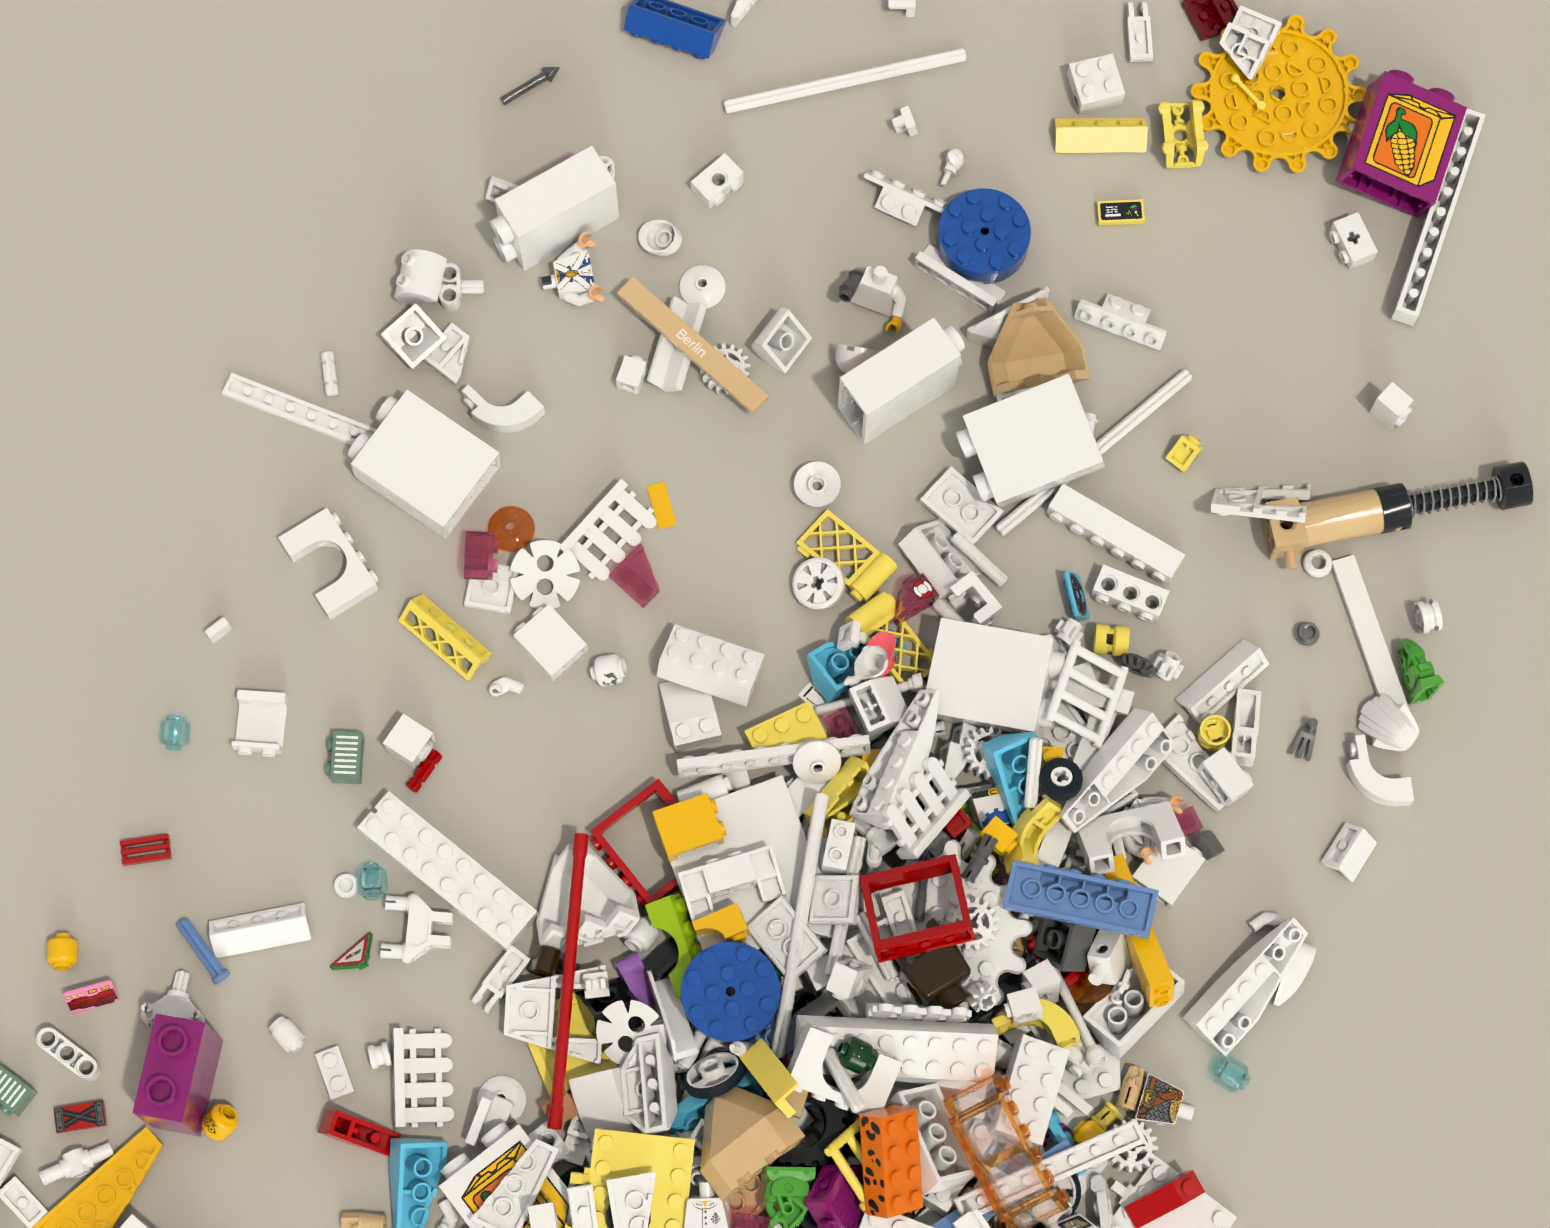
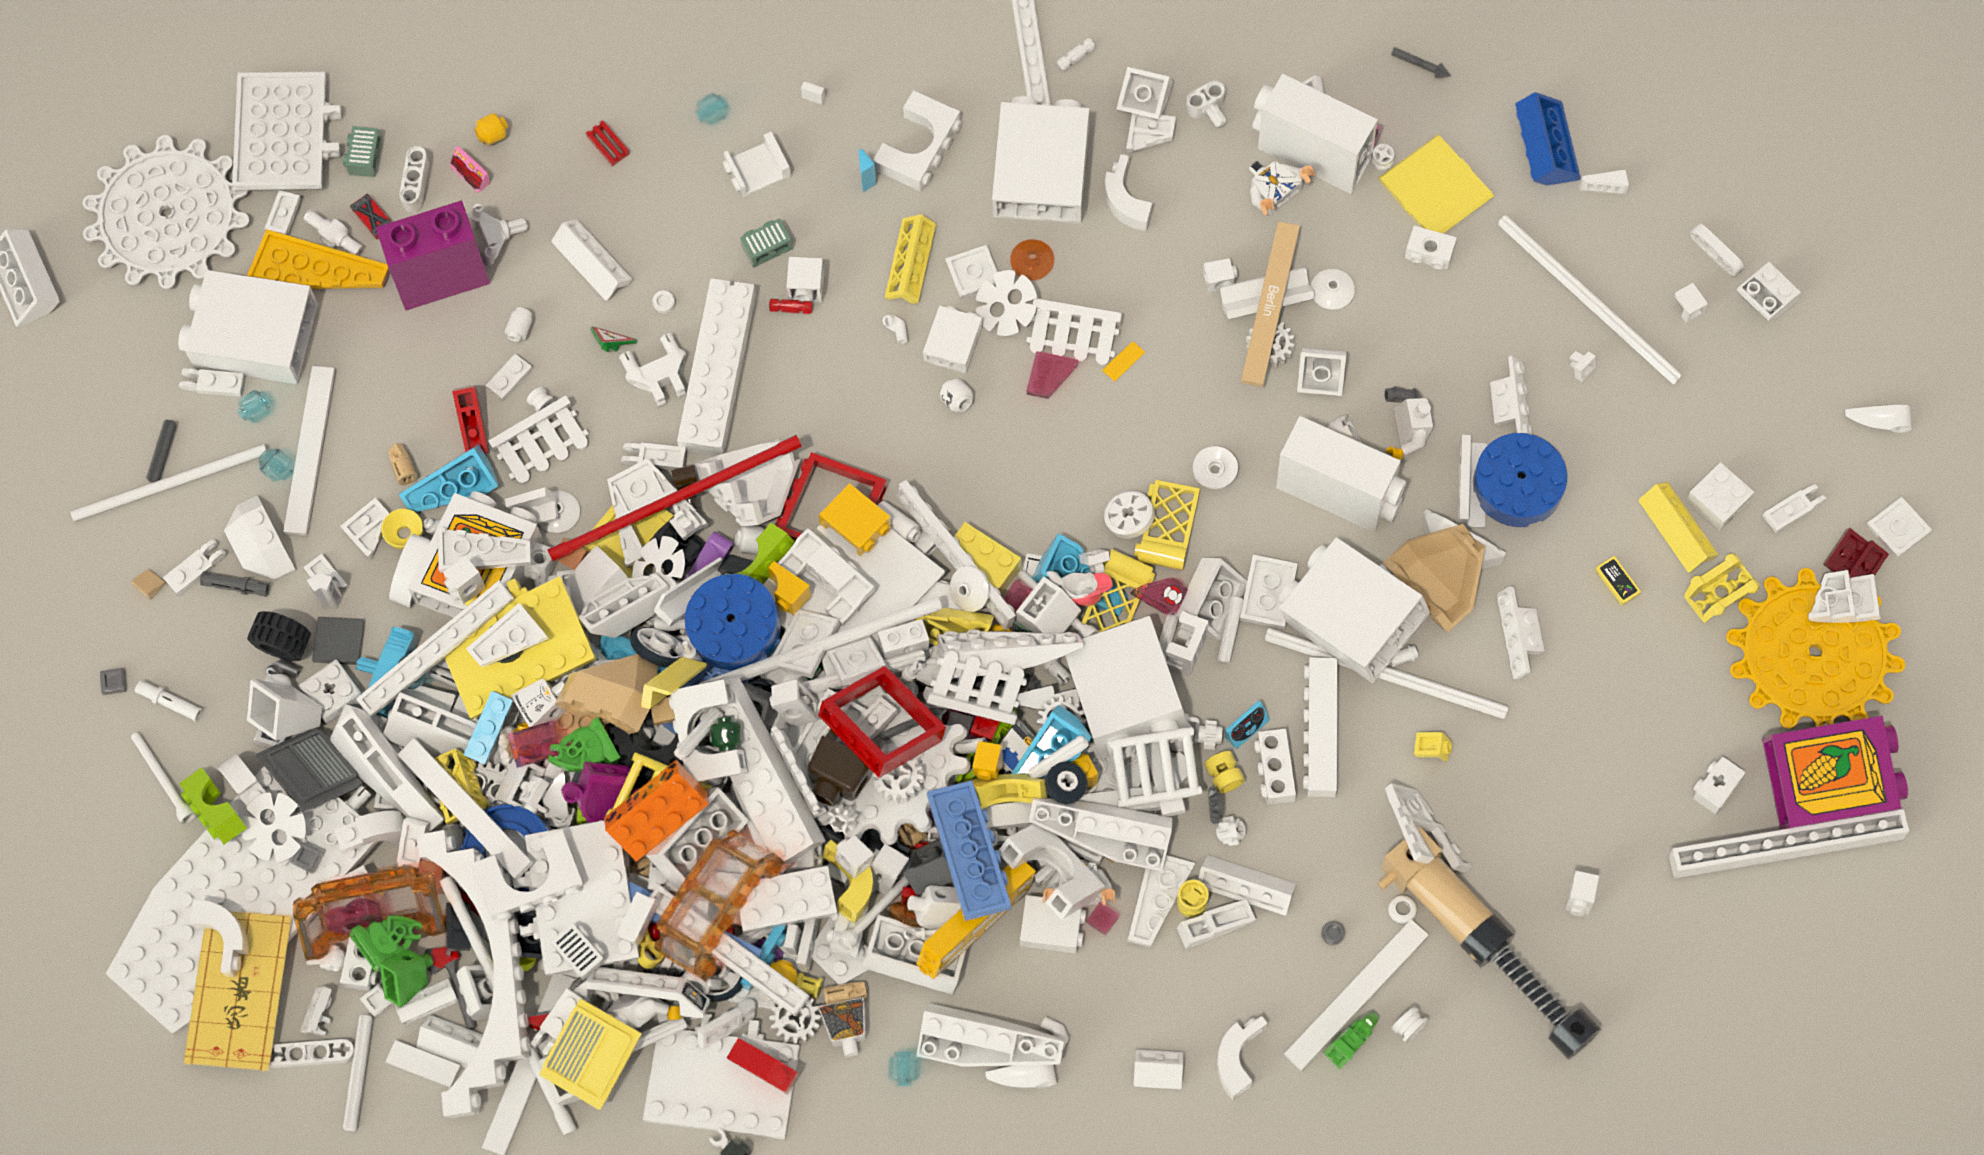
camera: 65 degrees right, 5 degrees down
(202, 951) = (550, 228): medium blue axle -> none
(220, 1121) = (421, 314): yellow head -> none
(333, 625) = (867, 170): none -> medium azure slope
(371, 881) = (676, 316): clear light blue head -> none
(420, 277) = (1196, 69): white brick -> none
(479, 555) = (990, 245): clear pink brick -> none
(658, 143) = (1436, 186): none -> light yellow piece
(660, 237) = (1352, 231): white hat -> none
(689, 716) = (958, 477): white slope -> none
(710, 665) = (1005, 467): white brick -> none
(954, 162) = (1572, 422): white piece -> none
(979, 858) = (956, 751): dark grey pin -> none
(1209, 845) = (1093, 947): flat silver tile -> none
(1225, 776) = (1158, 926): white brick -> none
(1260, 104) = (1792, 639): light yellow hinge -> none
(1308, 733) = (1244, 980): flat silver piece -> none
(1388, 724) = (1291, 1042): white hair -> none

